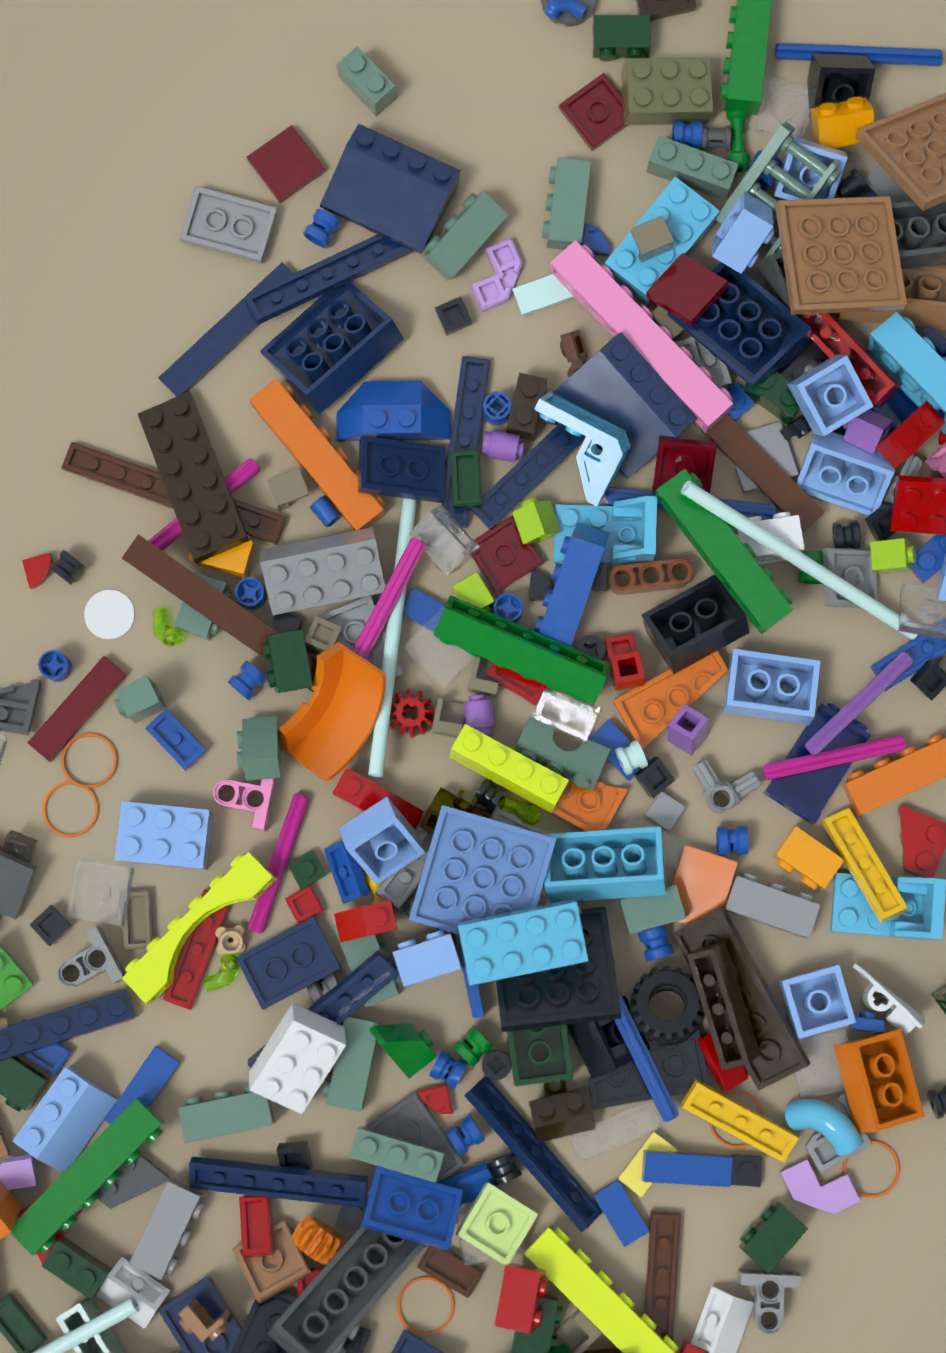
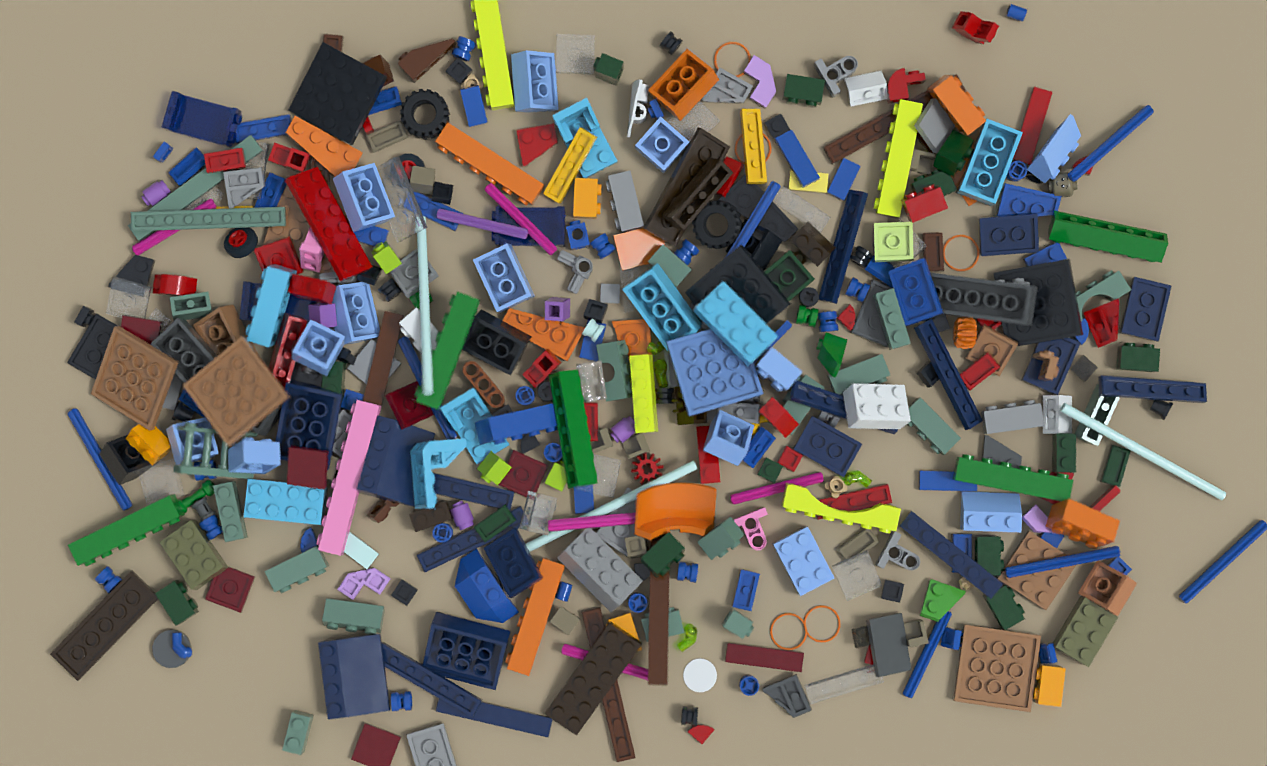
camera: 125 degrees left, 5 degrees up
(556, 821) = (655, 348): none -> clear neon green arm
(603, 624) = (525, 395): none -> blue wheel
(652, 238) = (291, 505): dark tan panel -> none
(753, 820) = (581, 243): none -> blue brick
(827, 1120) = (723, 99): medium azure cylinder -> none

